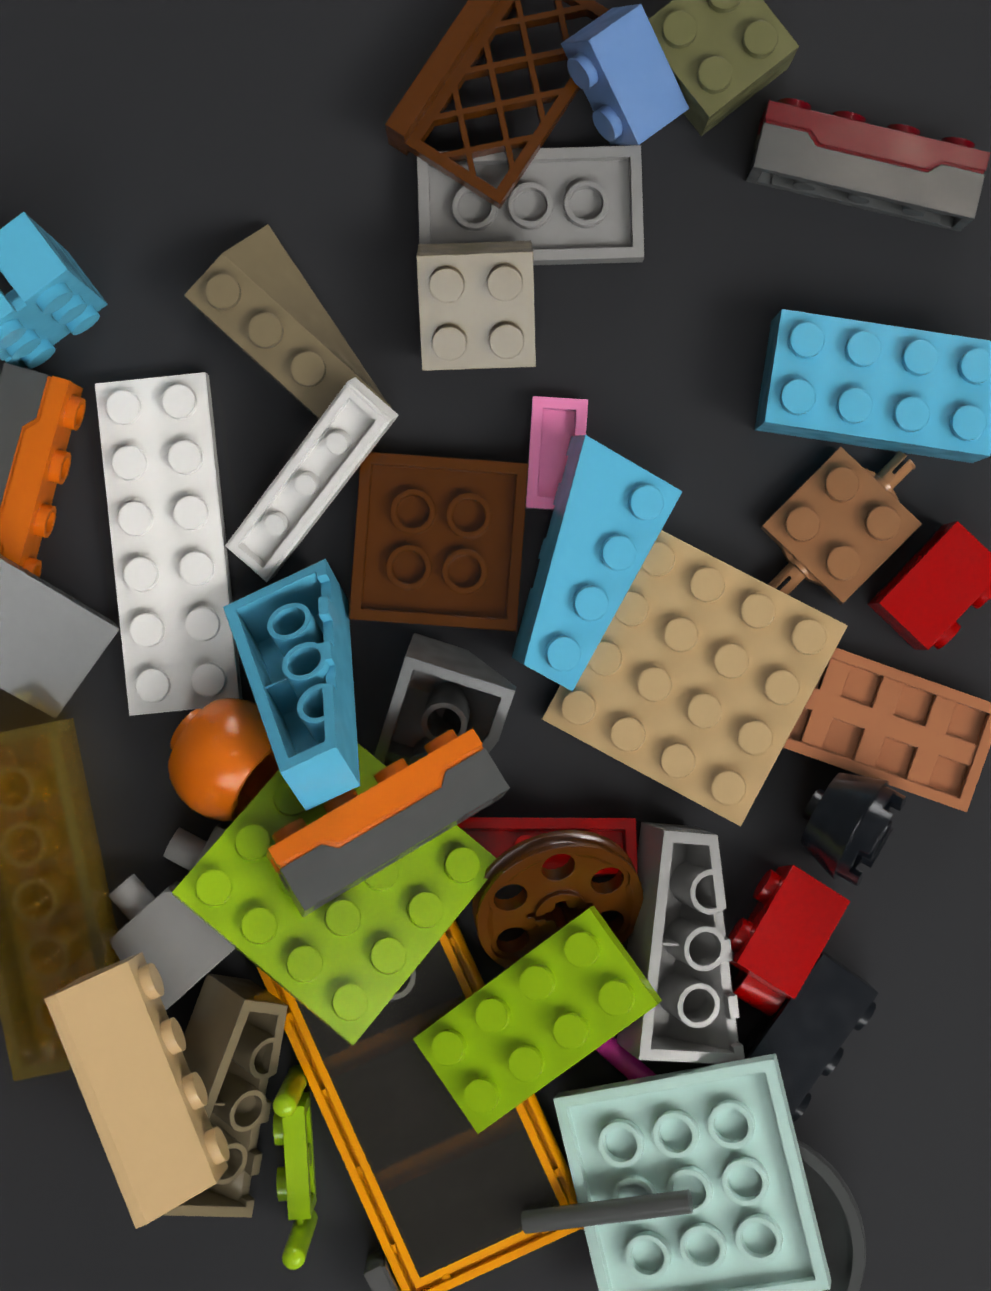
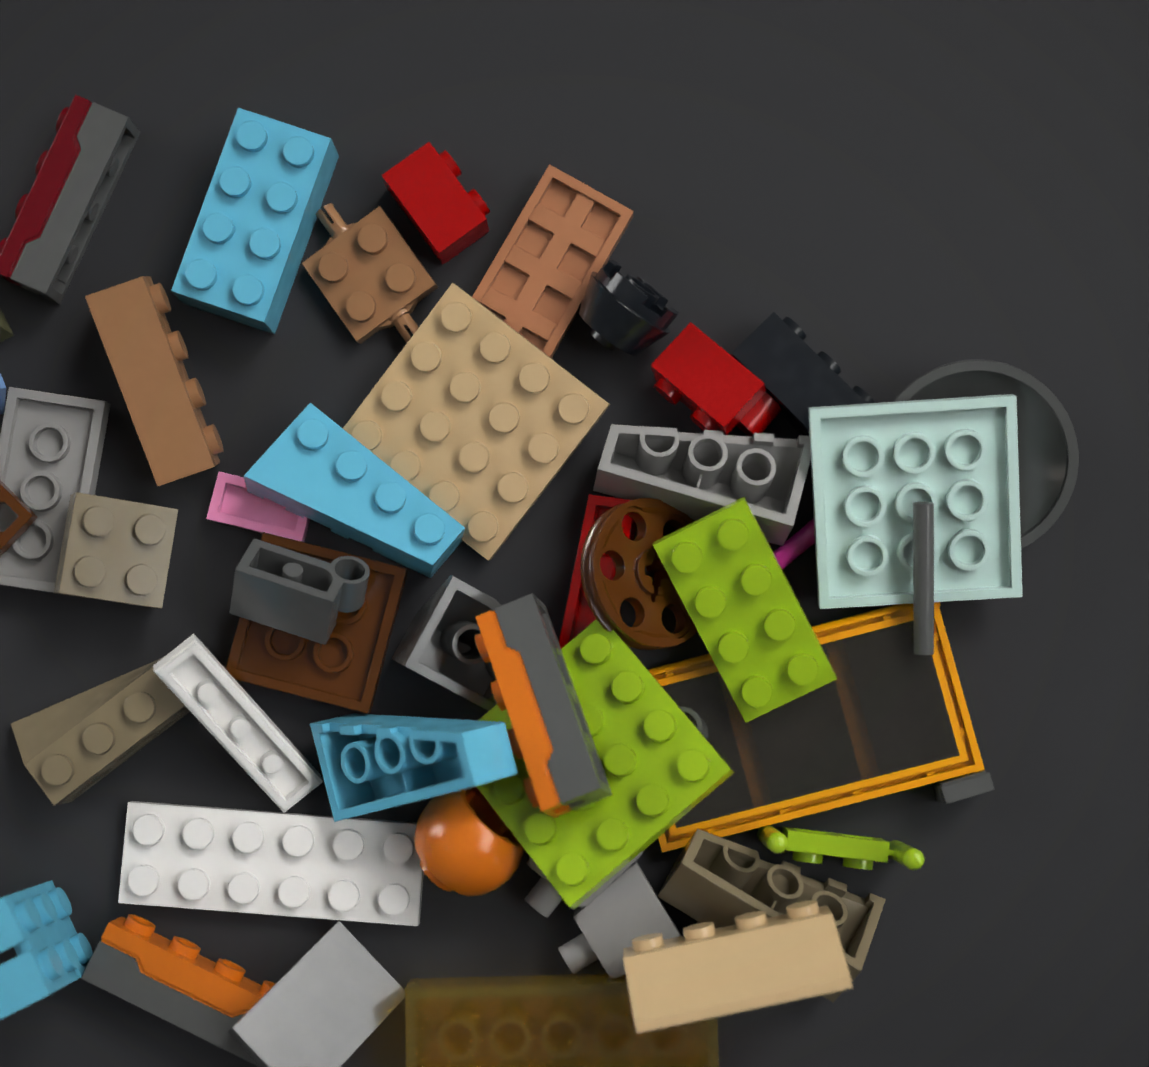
camera: 75 degrees left, 5 degrees down
(468, 519) = (297, 590): none -> dark grey hinge
(677, 309) = (154, 379): none -> medium nougat wedge

